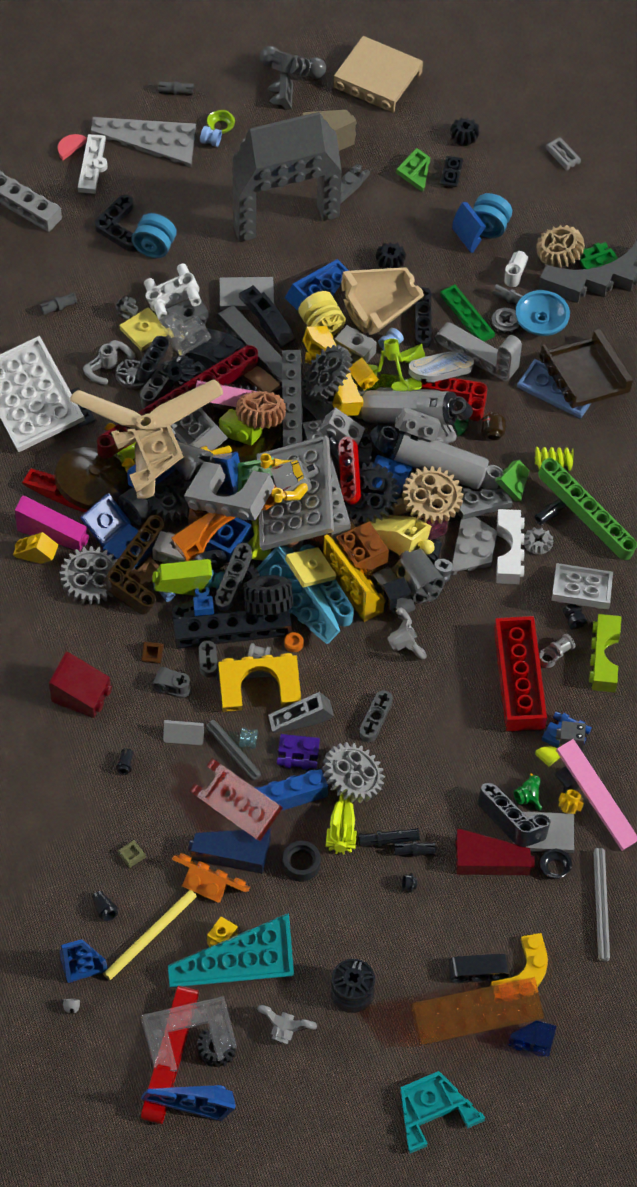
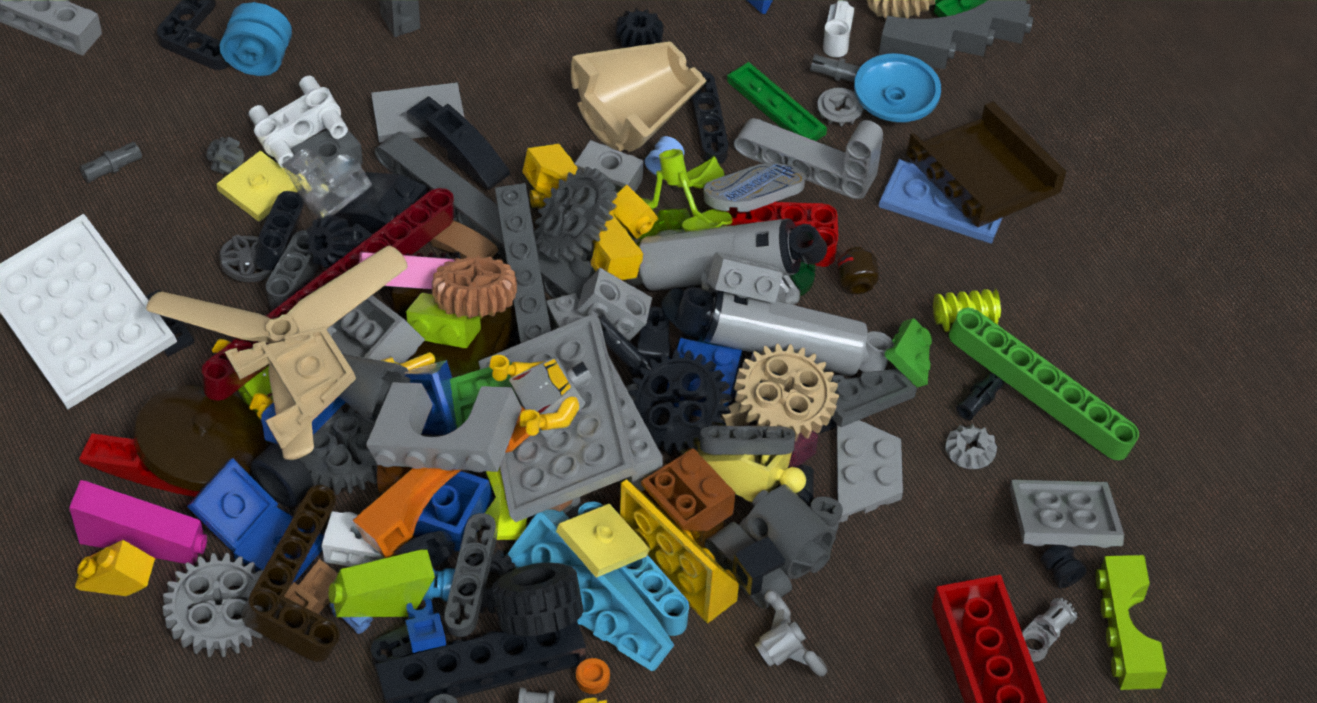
camera: 10 degrees left, 5 degrees down
(106, 359) = (201, 239): light grey piece -> none
(322, 310) = (545, 121): light yellow wheel -> none
(325, 279) = (530, 91): blue wedge -> none
(352, 469) = (645, 365): red beam -> none
(403, 520) = (747, 440): none -> dark grey beam
(509, 565) = (935, 495): white arch -> none

